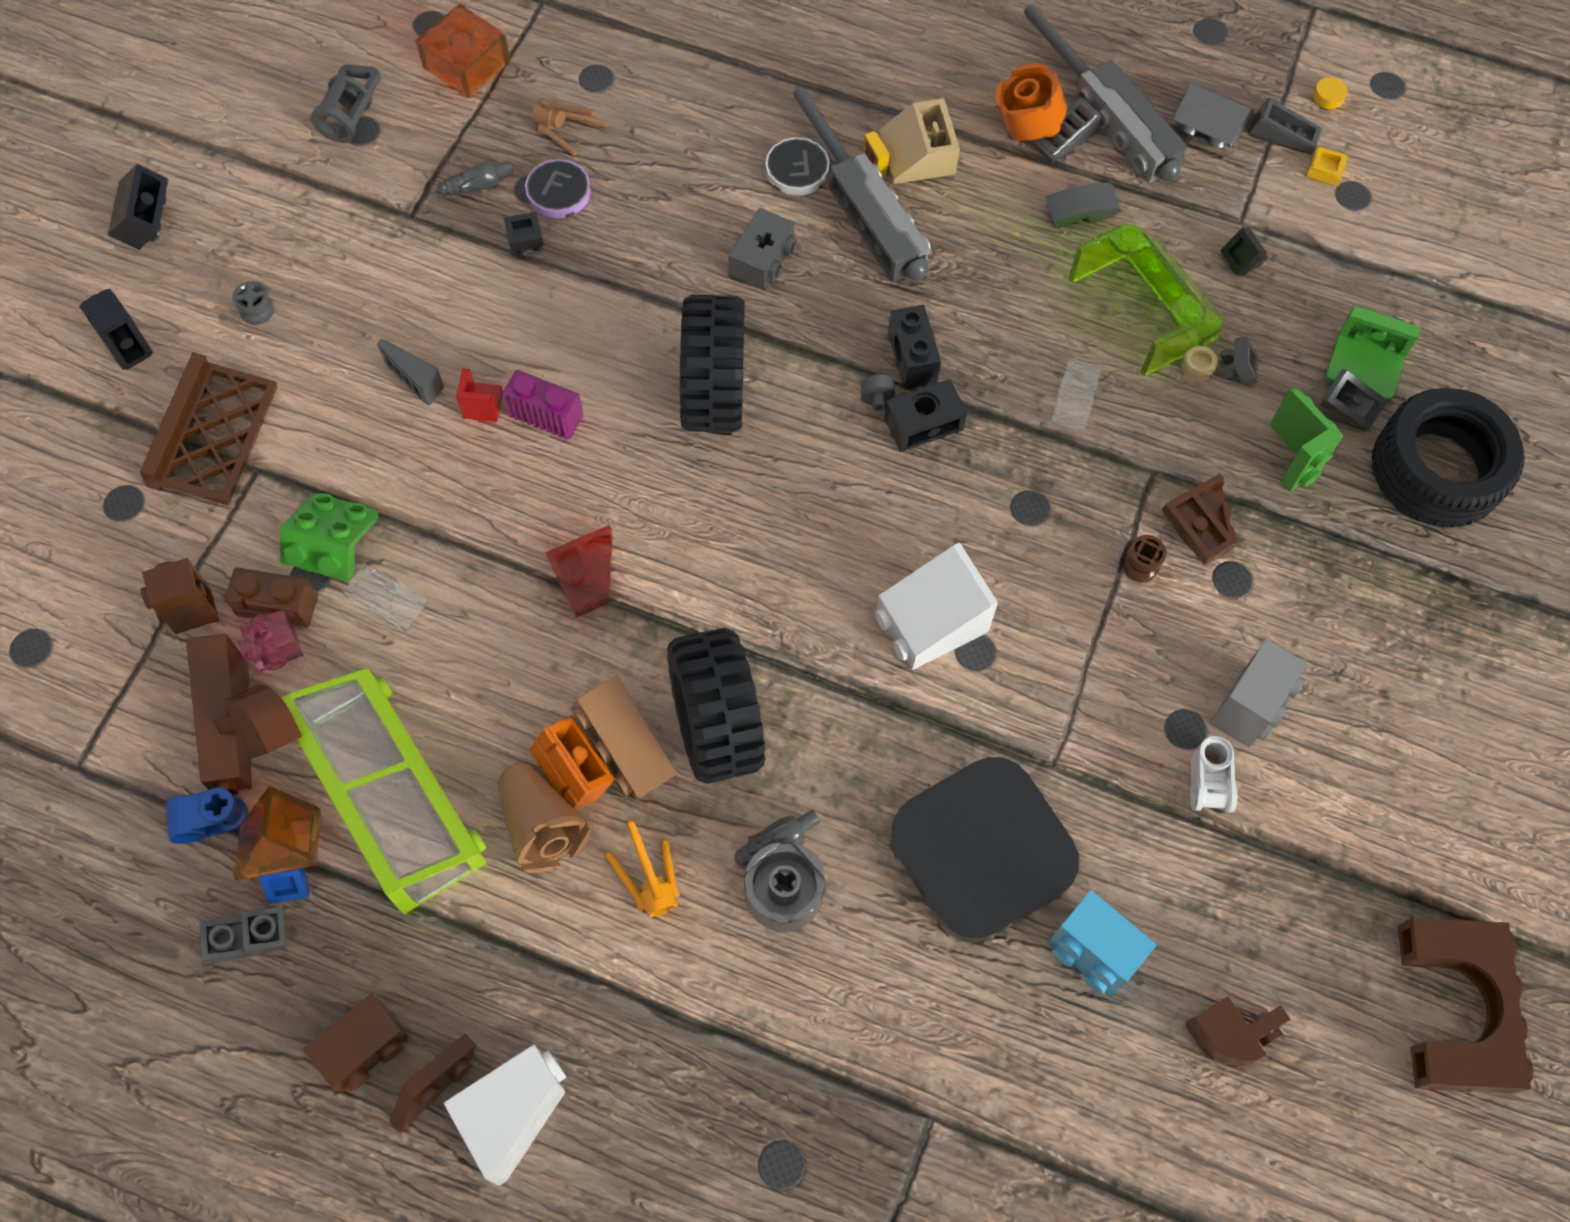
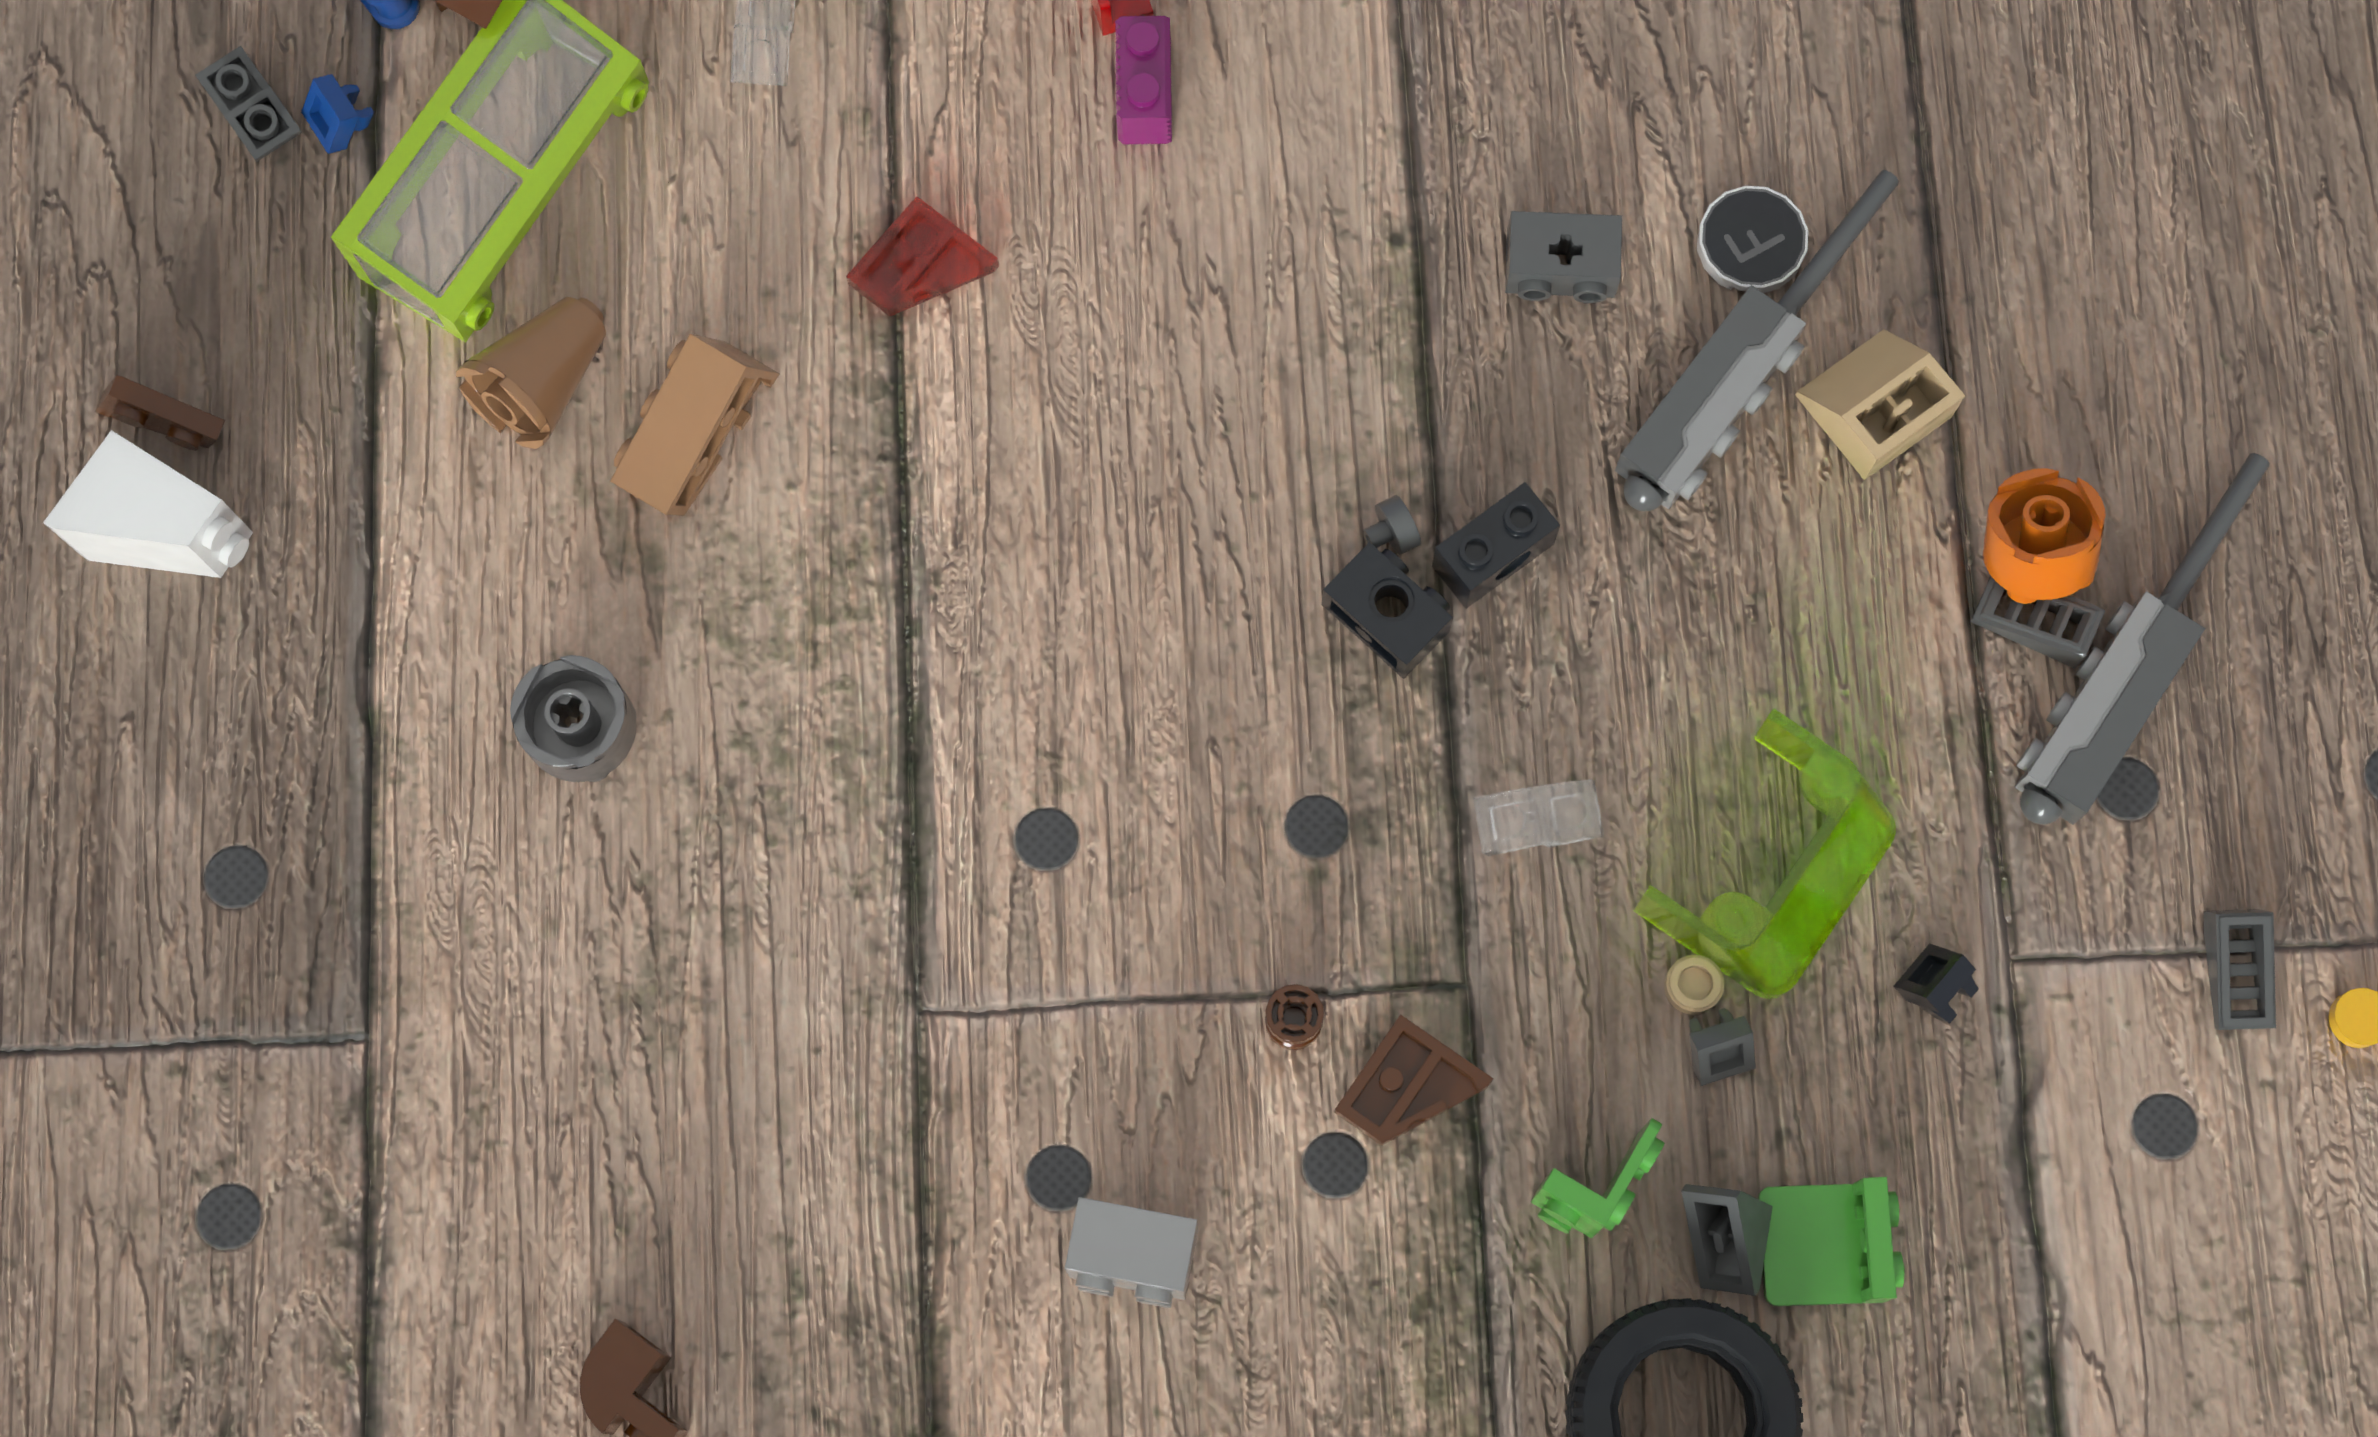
camera: 70 degrees right, 10 degrees up
(277, 836) = (375, 75): clear orange slope -> none
(357, 1044) = (169, 304): reddish brown brick -> none
(571, 763) = (623, 376): orange brick -> none
(657, 894) = (503, 566): light orange plant -> none
(712, 363) = (1284, 269): black tyre -> none
(716, 705) = (758, 510): black tyre -> none
(784, 830) = (648, 684): dark grey piece -> none
(876, 152) = (1828, 344): yellow tile -> none
(936, 608) = (1065, 750): white slope -> none
(984, 849) = (744, 959): black tile -> none
(1076, 203) = (1904, 695): dark grey slope -> none
(1101, 945) = (660, 1156): medium azure brick -> none
(1211, 783) = (984, 1236): white piece -> none
(1212, 115) = (2199, 837): flat silver slope -> none
(1327, 166) = (2199, 1062): yellow tile -> none

